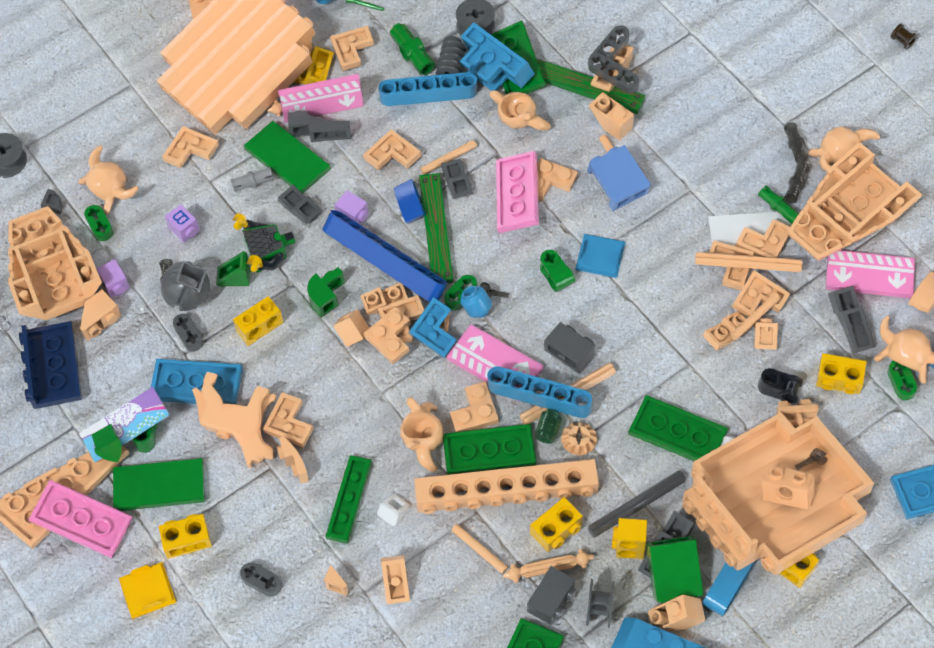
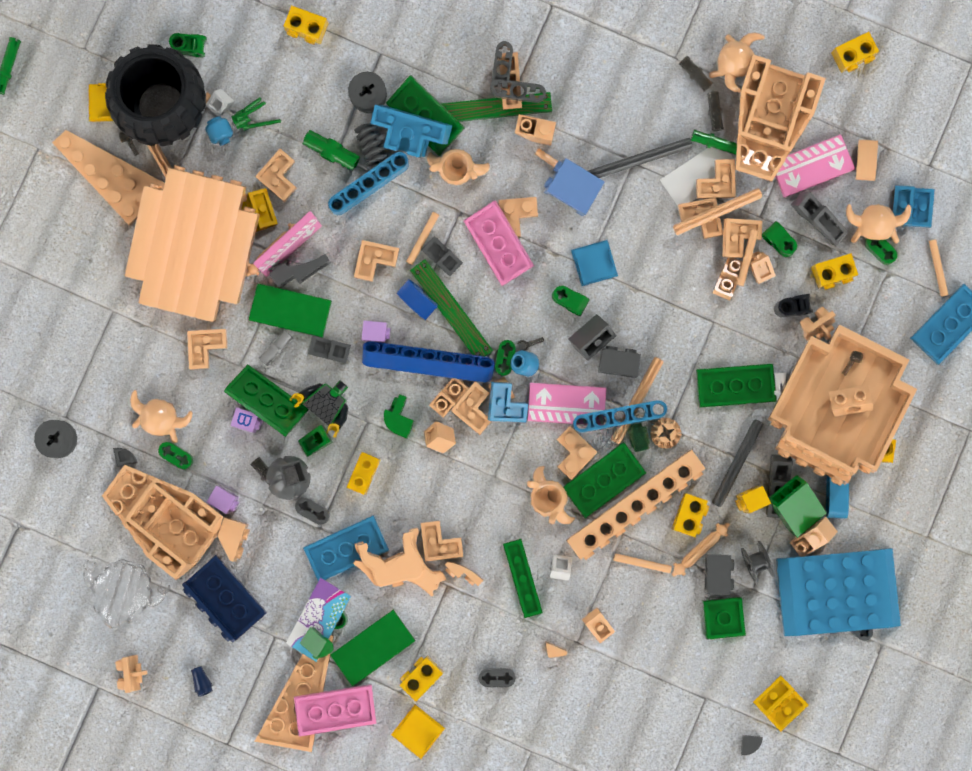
camera: 30 degrees left, 25 degrees up
(212, 214) = (266, 400): none -> green tile
(384, 335) = (471, 434): light nougat plate -> none
(555, 310) = (592, 337): none -> dark grey brick
(703, 188) = (642, 158): none -> dark grey axle
(799, 320) = (778, 237): none -> green piece

